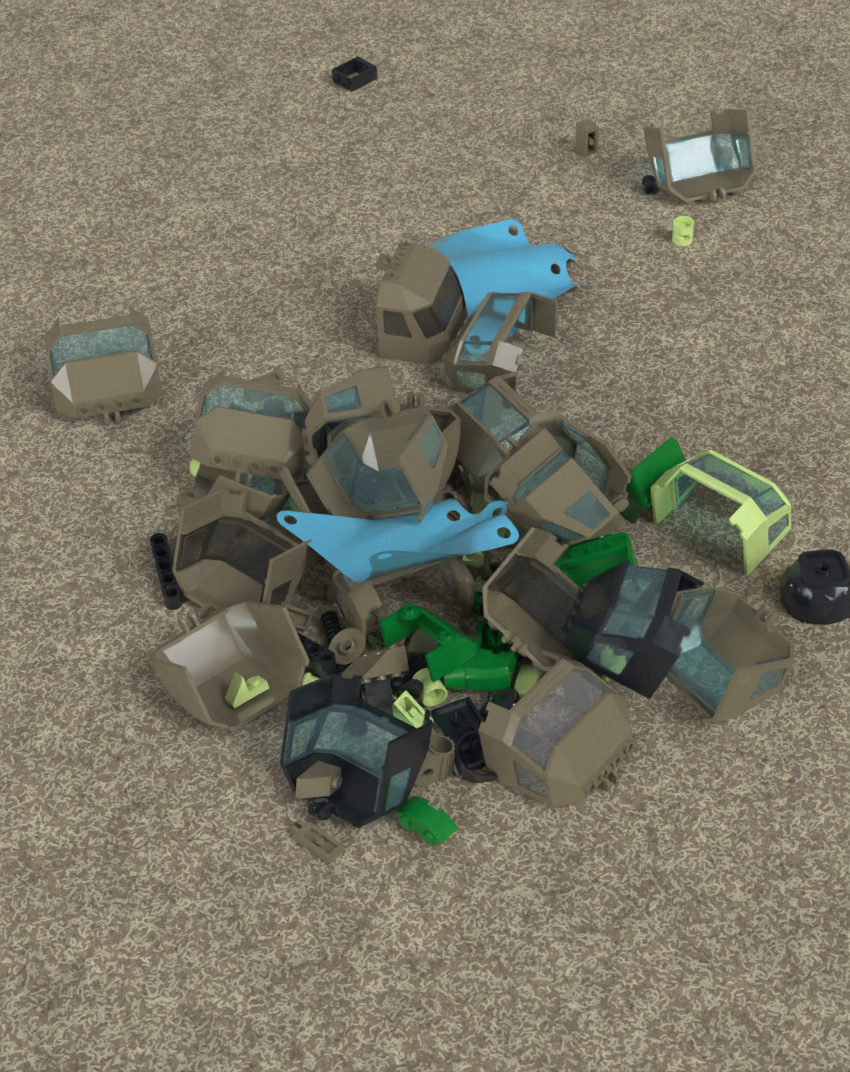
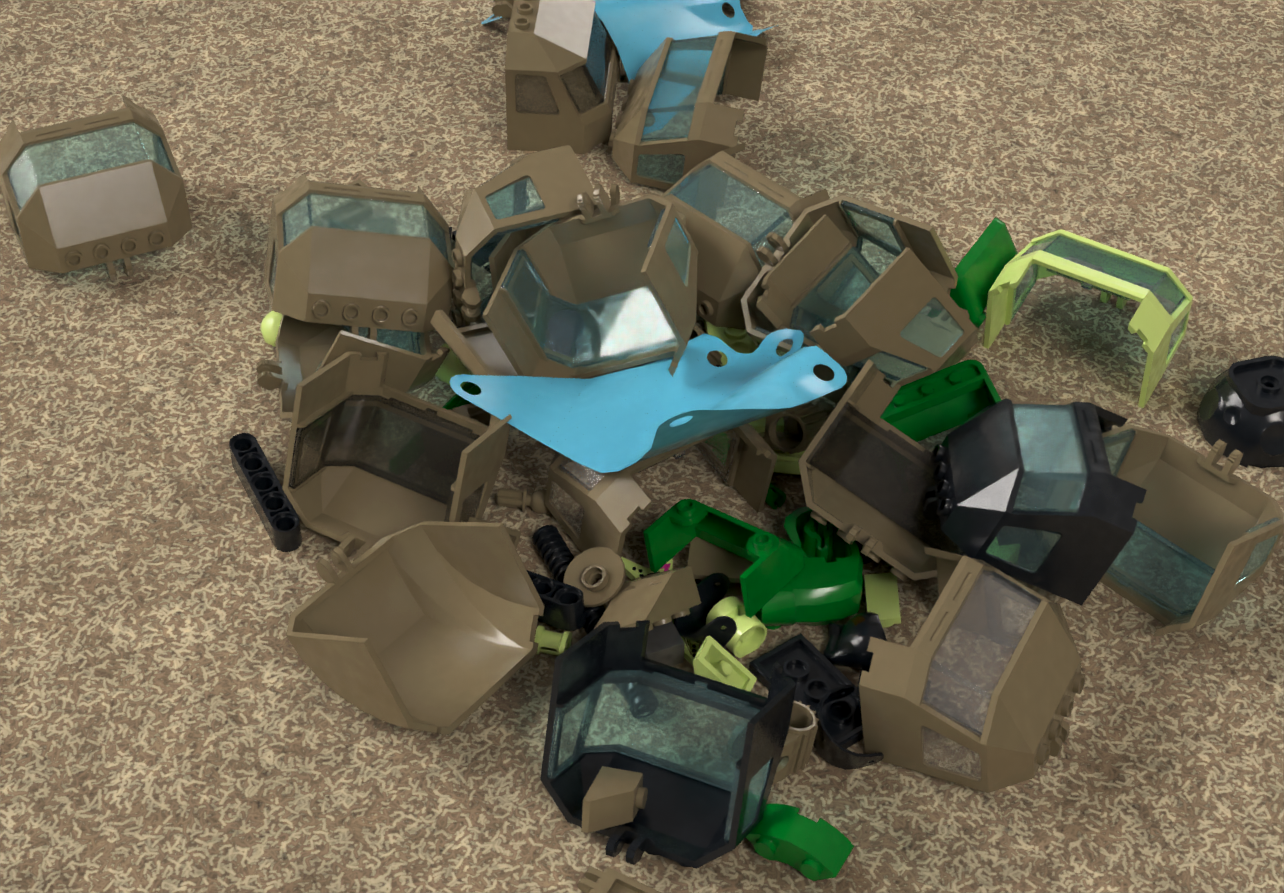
camera: 15 degrees left, 0 degrees up
(242, 691) = (444, 666): yellowish green slope -> none

